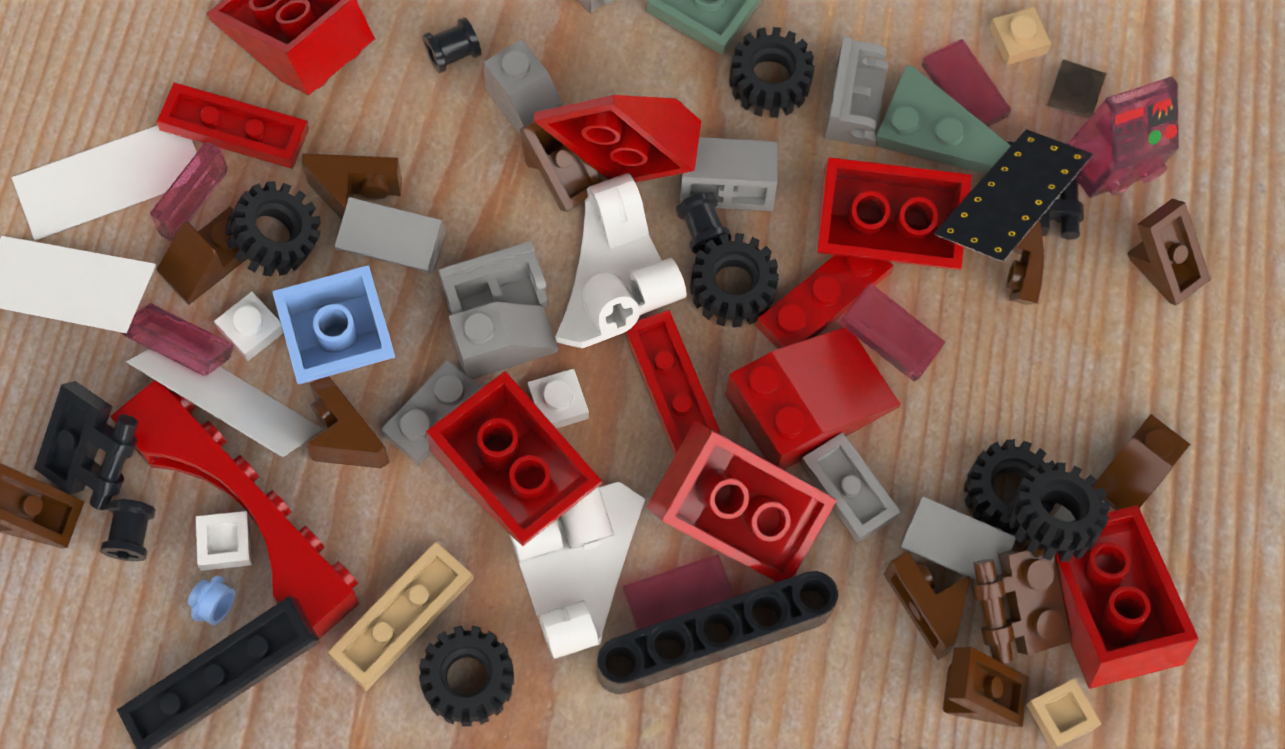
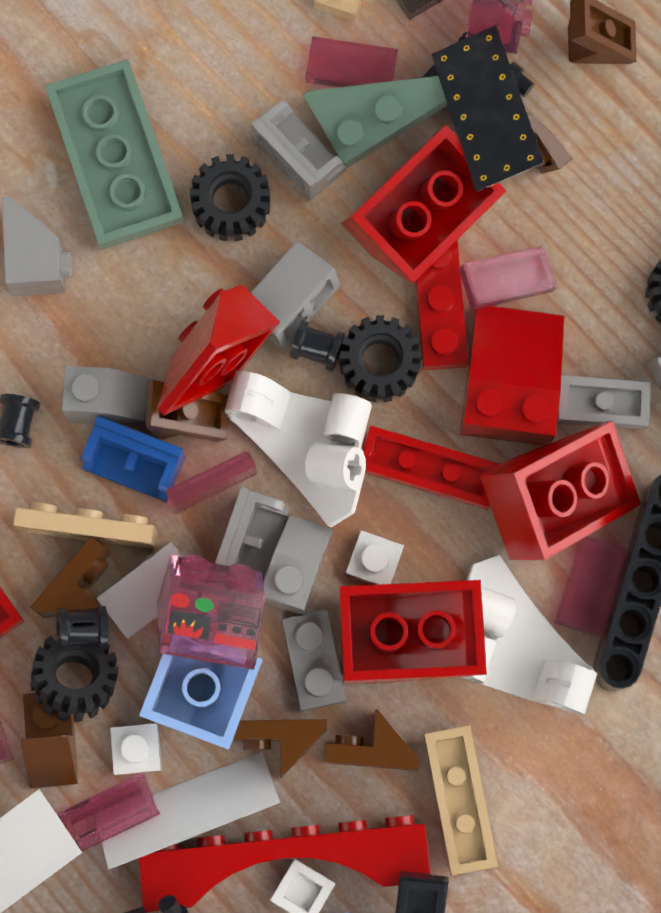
camera: 50 degrees left, 10 degrees up
(314, 199) = (82, 627): none -> black bush
(387, 123) = (45, 521): none -> tan plate
(396, 519) = (387, 749): none -> reddish brown slope
(401, 281) = (210, 611): none -> clear pink slope
(461, 645) = (570, 780): black tyre -> none
(491, 152) = (132, 459): none -> blue hinge
(519, 222) = (211, 482): none -> clear pink tile

